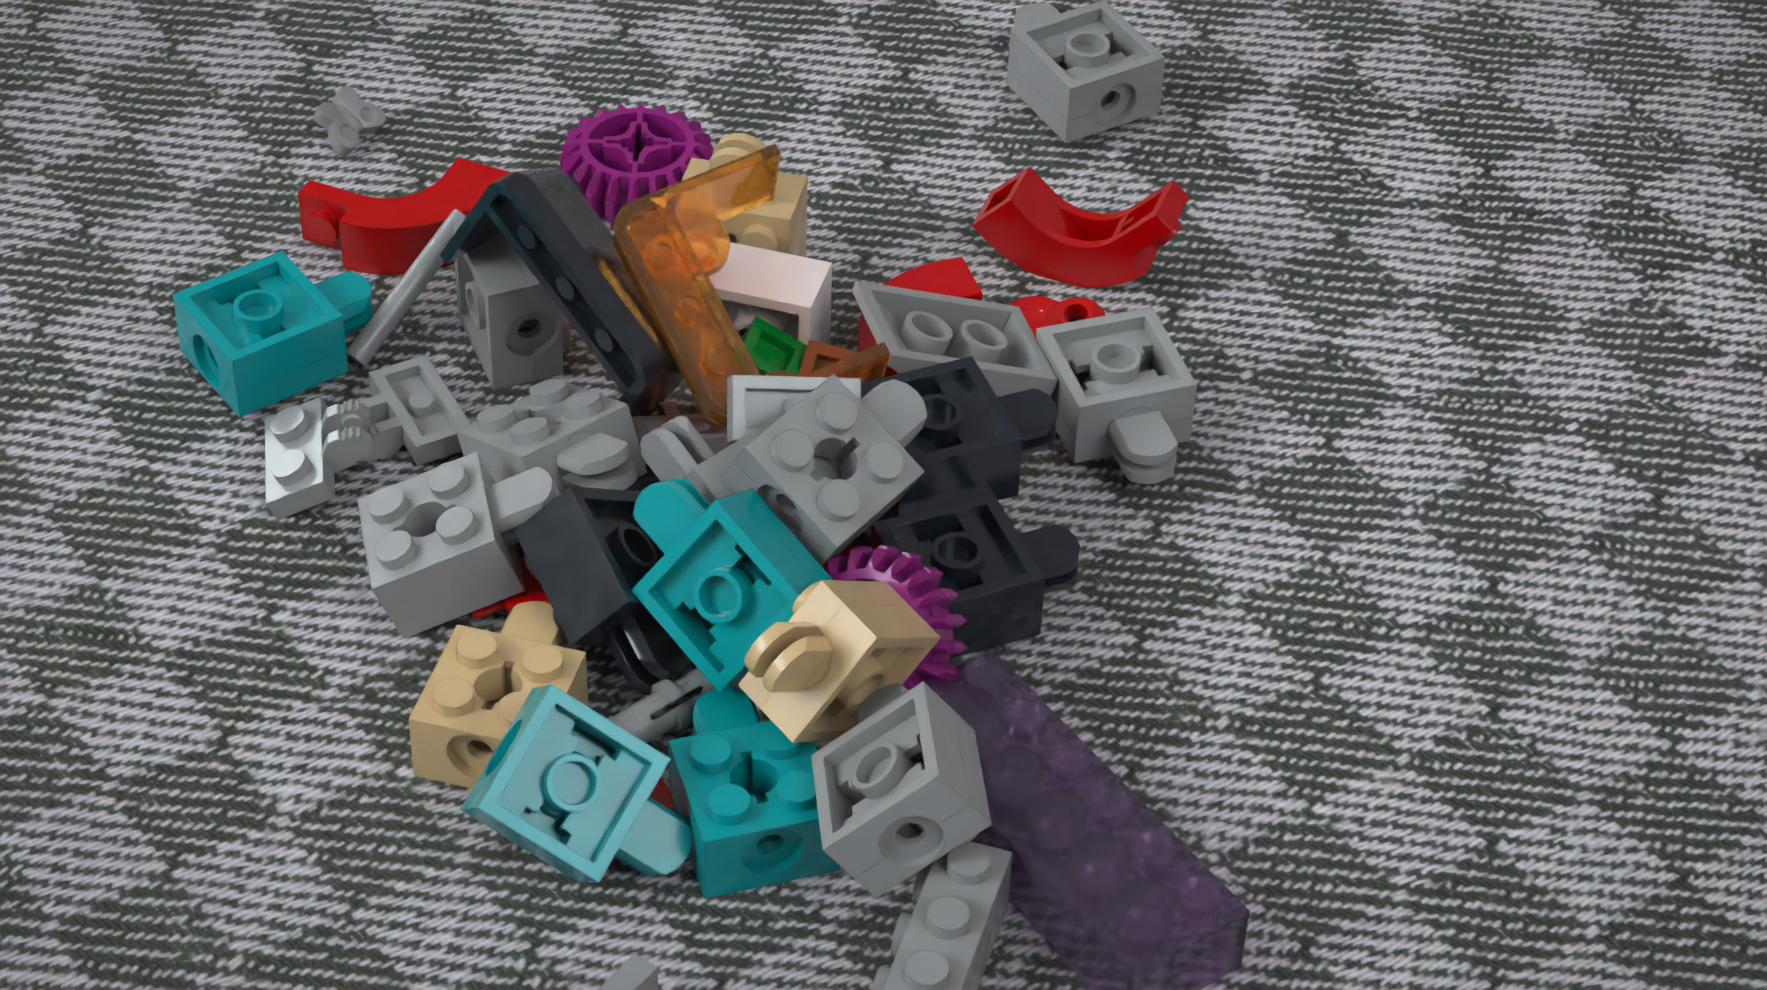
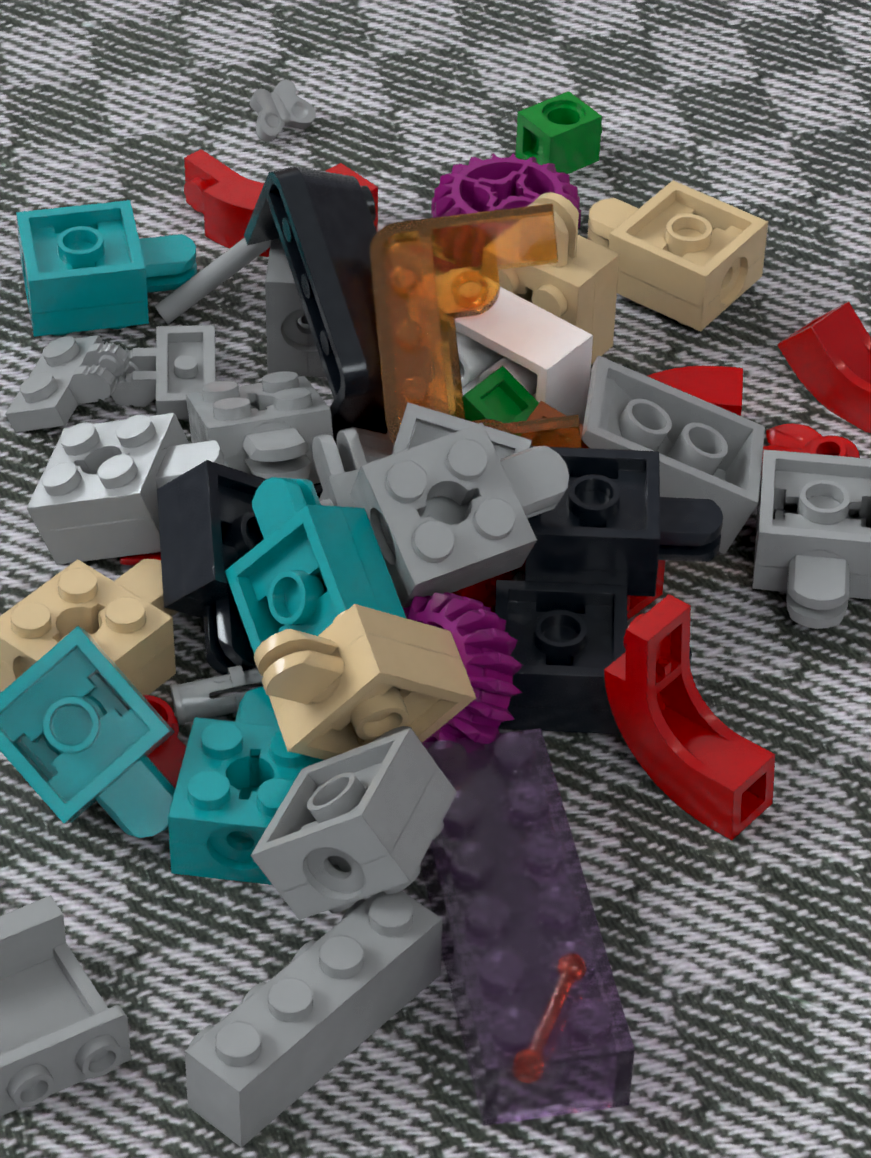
camera: 25 degrees right, 0 degrees up
(641, 70) = (559, 133): none -> green brick
(849, 154) = (681, 251): none -> tan brick
(1104, 619) = (674, 732): none -> red arch
(1176, 953) = (529, 1063): none -> clear red hinge

